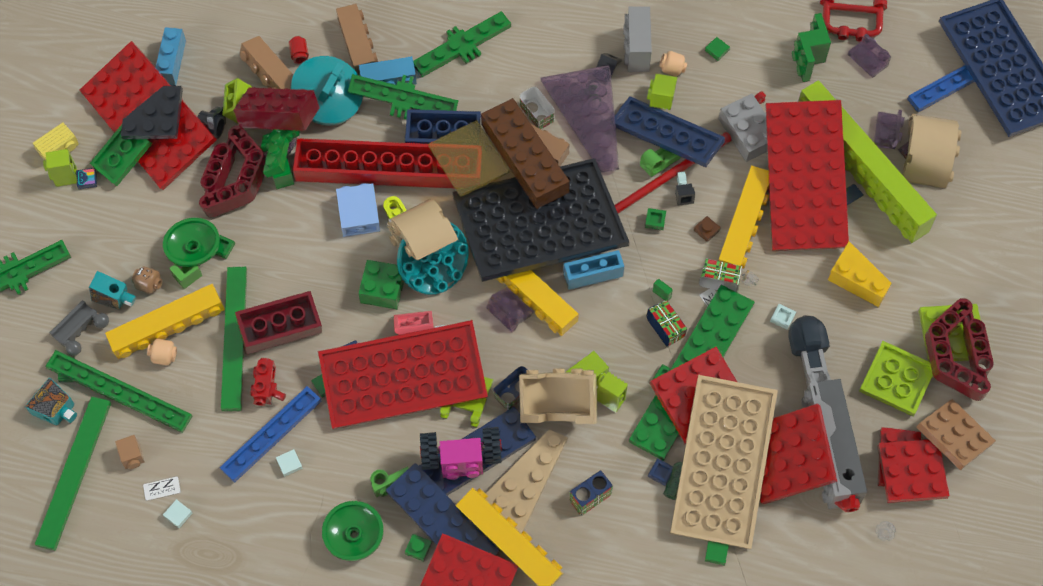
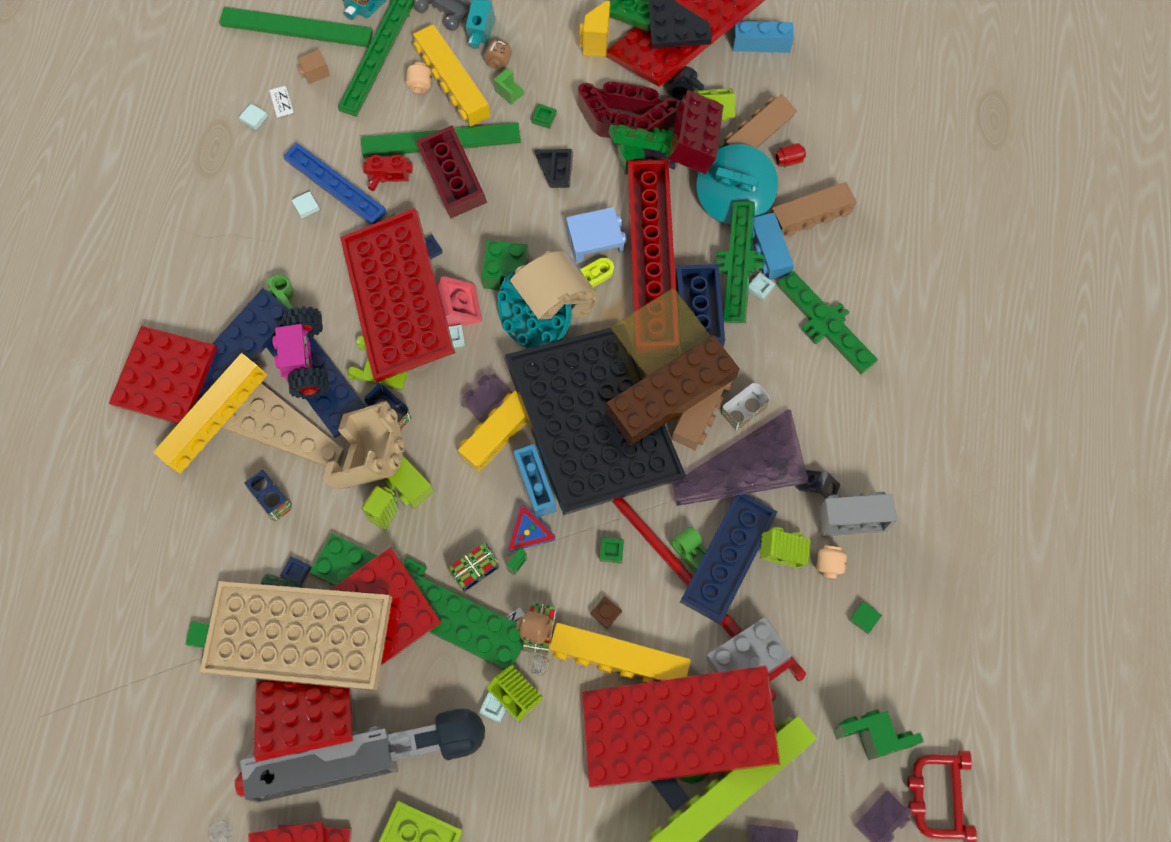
camera: 85 degrees right, 5 degrees up
(143, 187) = (595, 31): none -> yellow slope
(188, 235) = (540, 76): green dish -> none
(280, 238) = (556, 166): none -> black wing
(351, 518) = (223, 255): green dish -> none
(418, 547) = (212, 330): green plate -> none
(425, 85) = (761, 286): none -> light aqua tile
(636, 279) = (528, 531): none -> piece
(684, 192) = (650, 582): black piece -> none
(726, 269) = (535, 627): none -> medium nougat head
(774, 296) = (515, 693): none -> lime brick
(859, 276) = (550, 800): yellow wedge -> none

